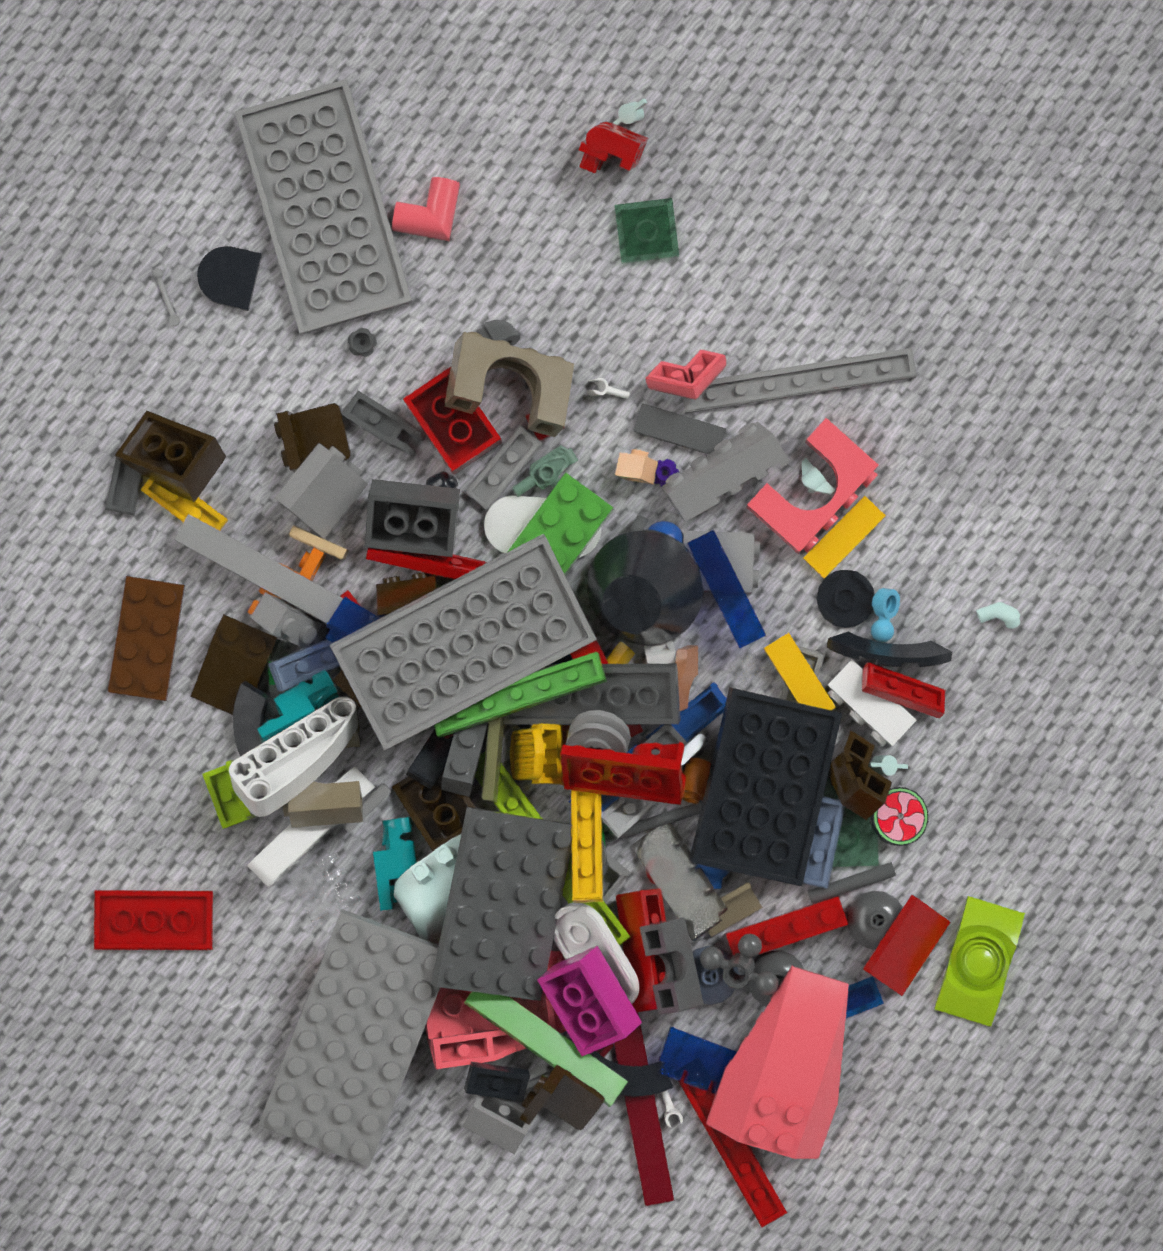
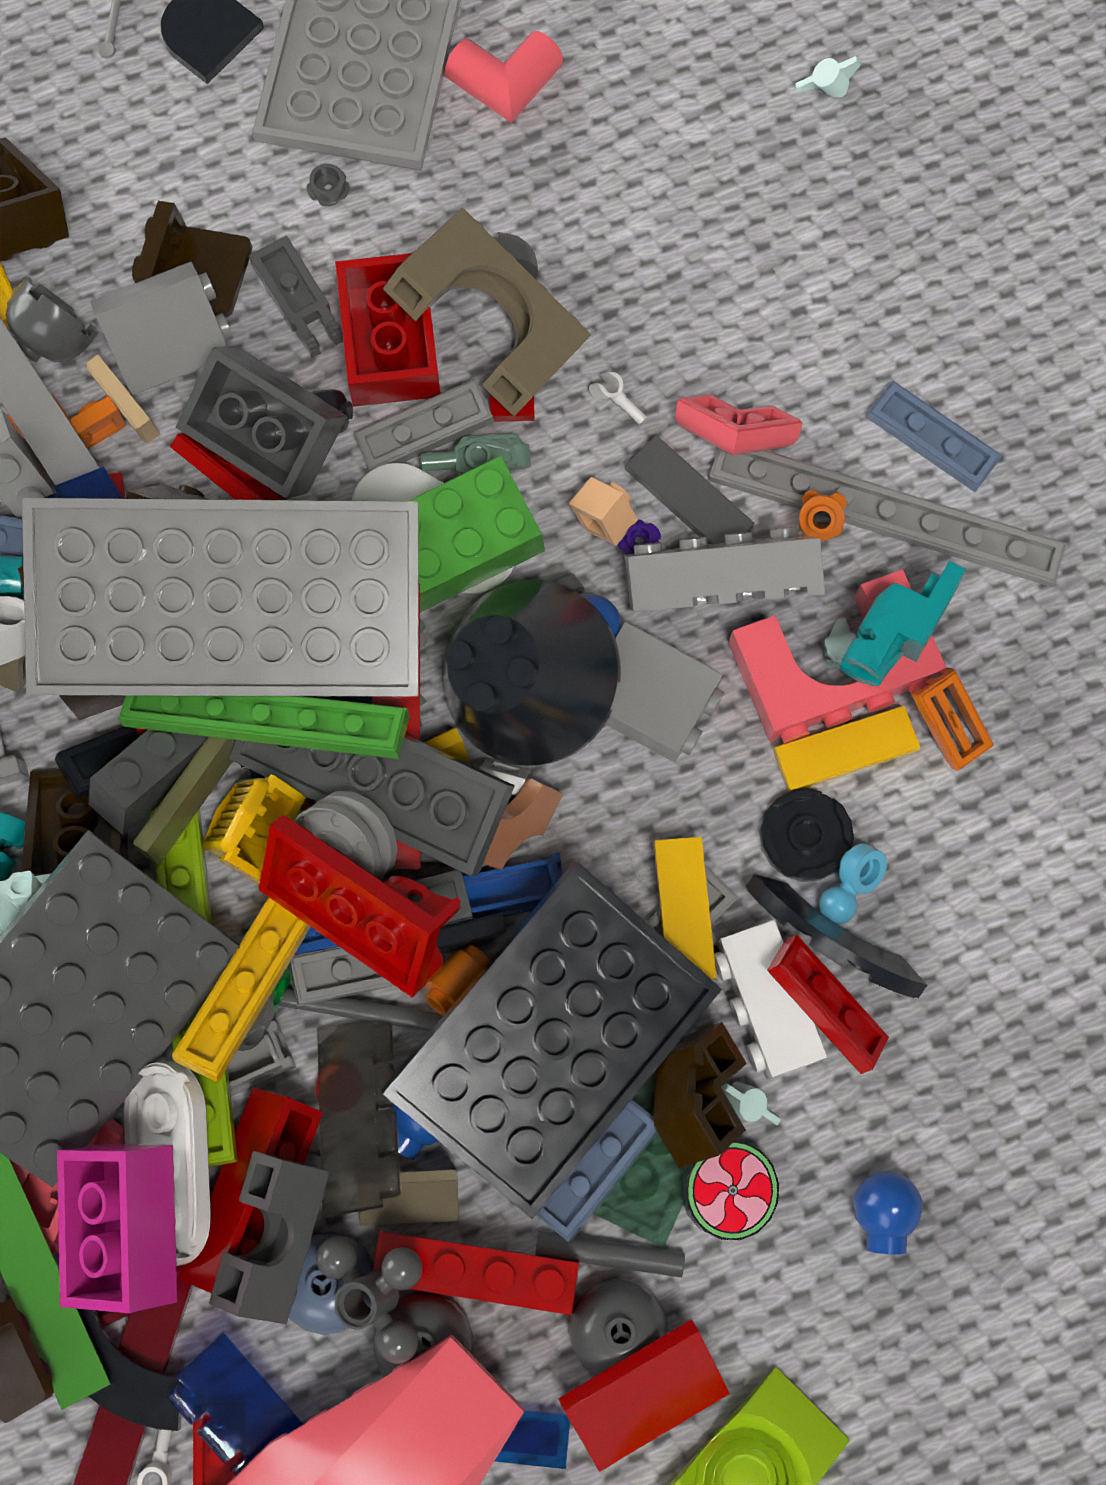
camera: 20 degrees right, 10 degrees down
(249, 520) = (46, 324): none -> dark grey cylinder
(610, 140) = (784, 88): red hips -> none
(646, 230) = (776, 228): clear green tile -> none
(726, 589) = (643, 730): clear blue tile -> none
(761, 400) = (831, 504): none -> orange brick
(804, 318) = (934, 436): none -> sand blue tile
(839, 455) = (899, 626): none -> teal plate
(878, 481) = (931, 716): none -> orange tile
(988, 784) = (888, 1210): none -> blue piece
(1002, 611) = (1024, 965): light aqua arm -> none

